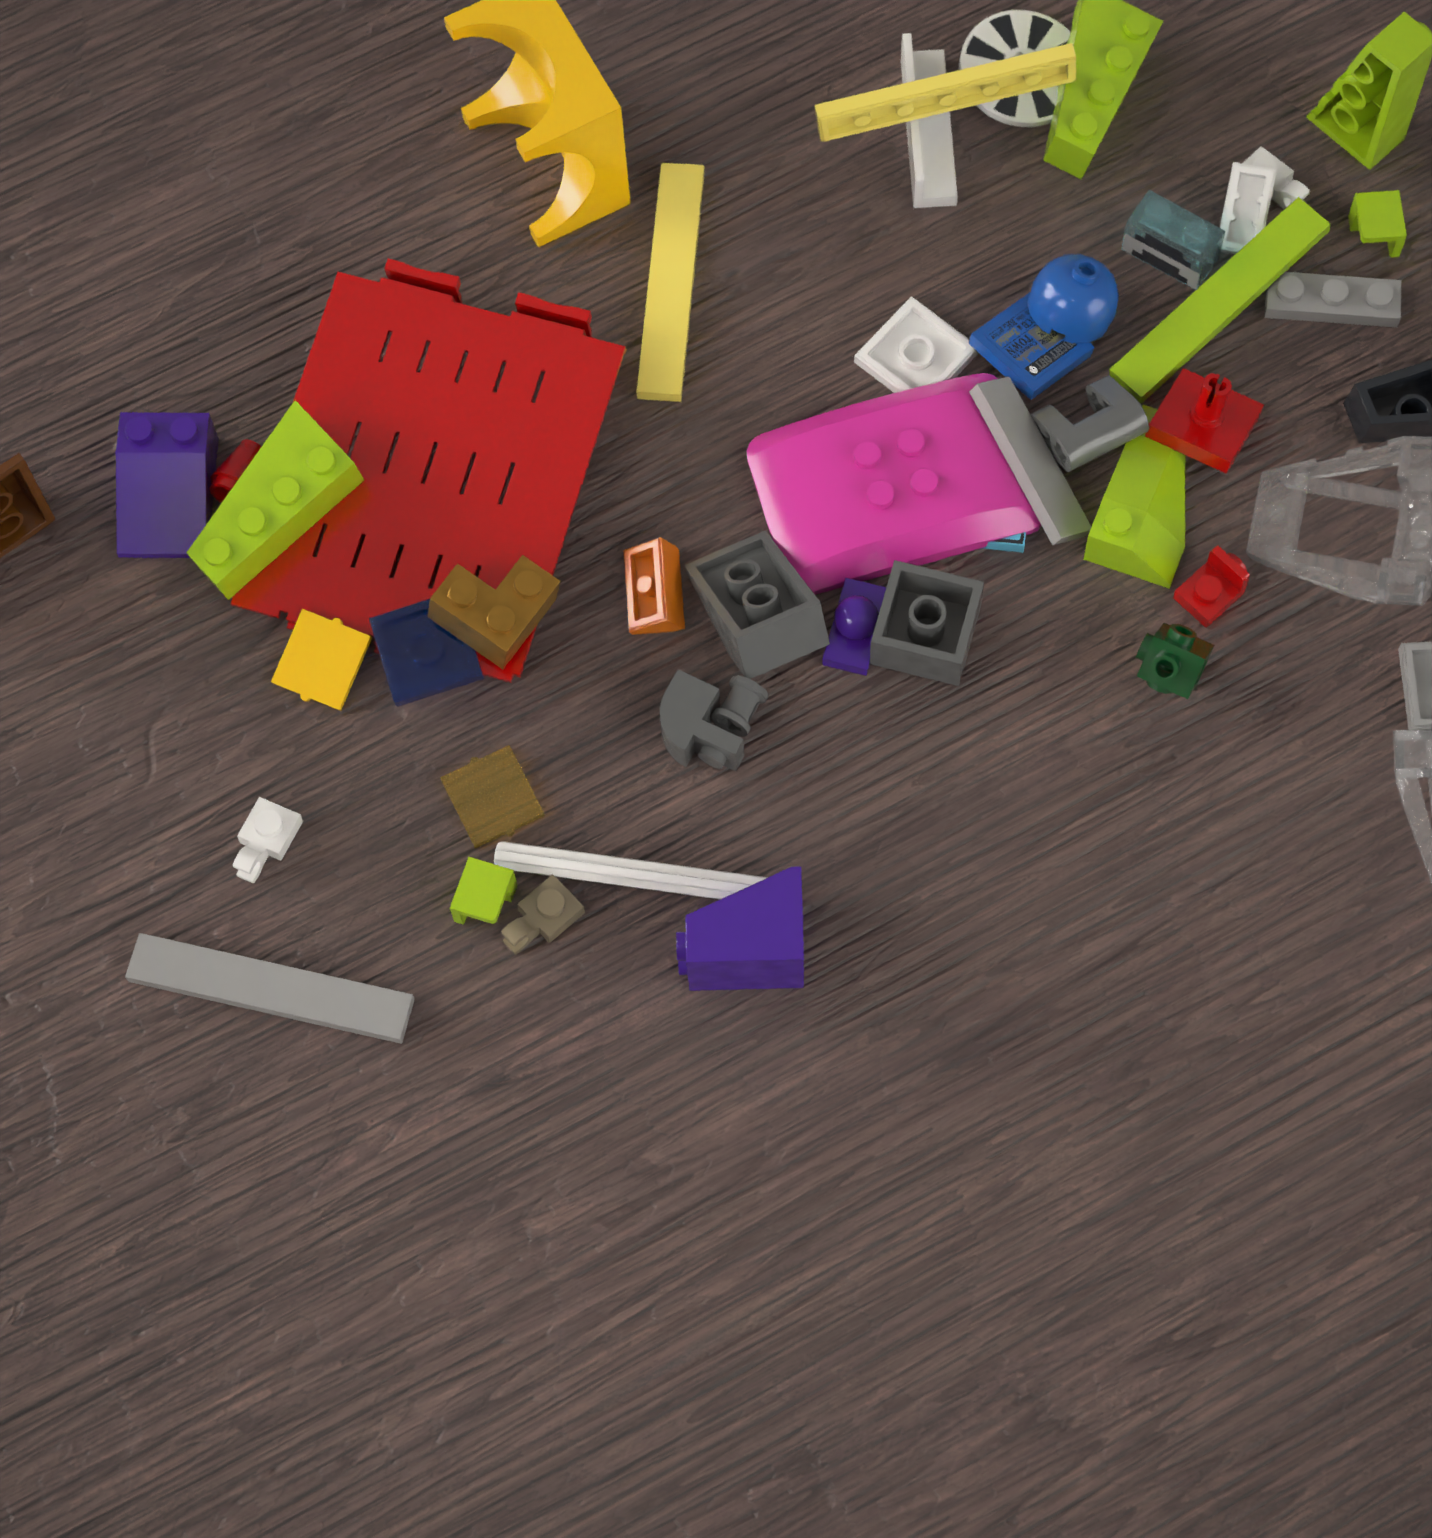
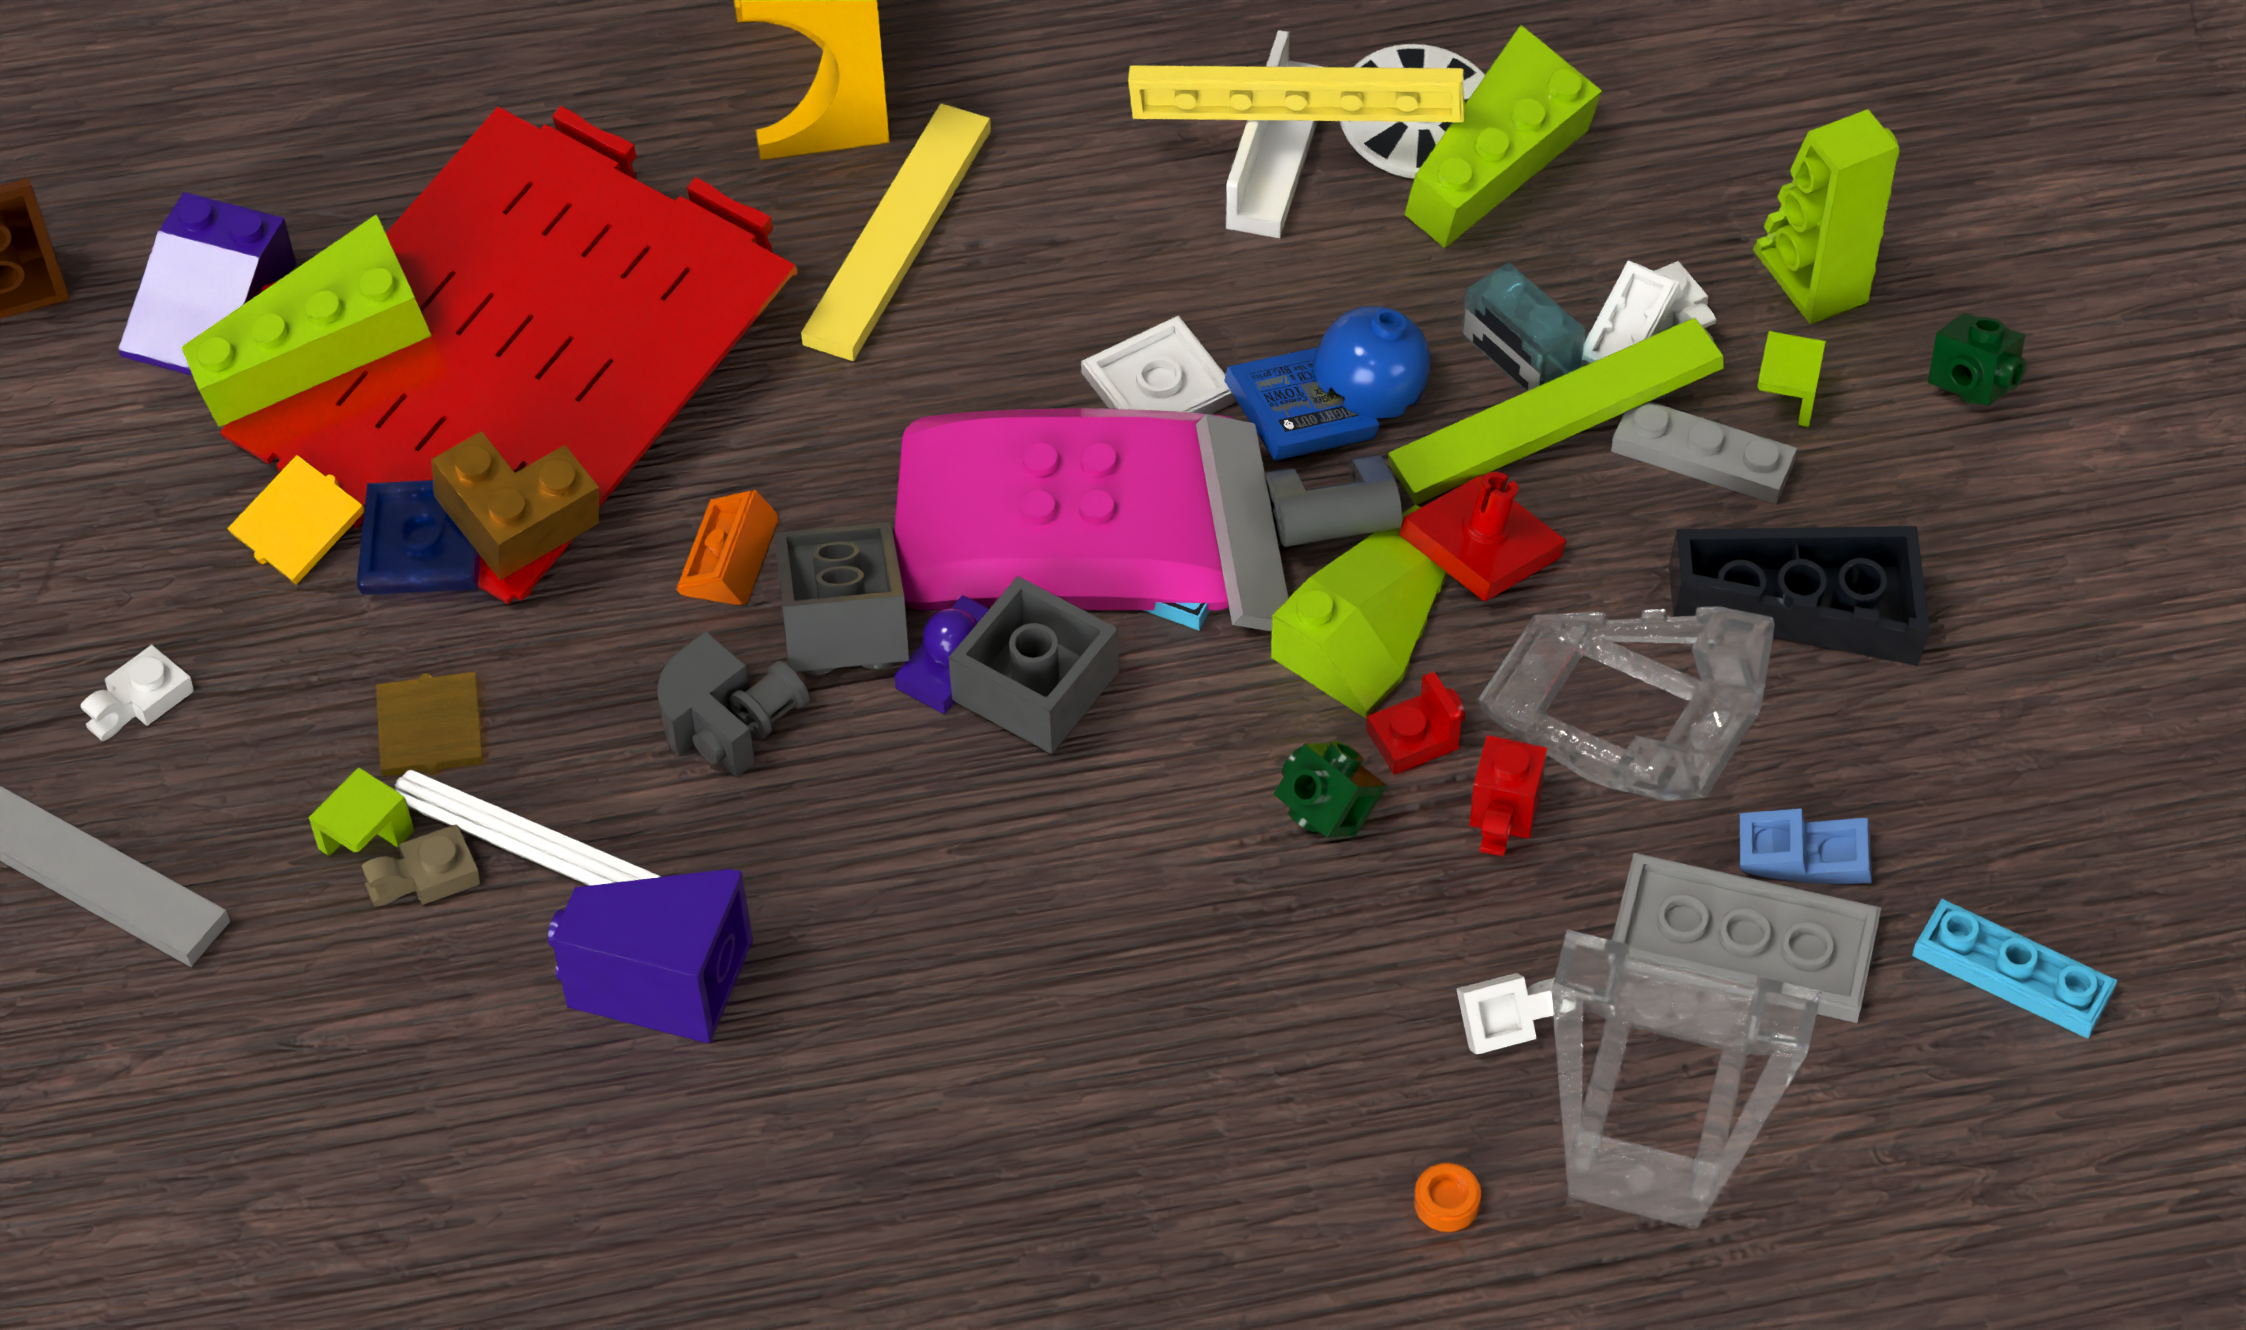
camera: 15 degrees right, 15 degrees down
(1299, 625) = (1506, 791): none -> red brick
(1359, 793) = (1503, 1011): none -> white plate
(1367, 947) = (1447, 1197): none -> orange tile

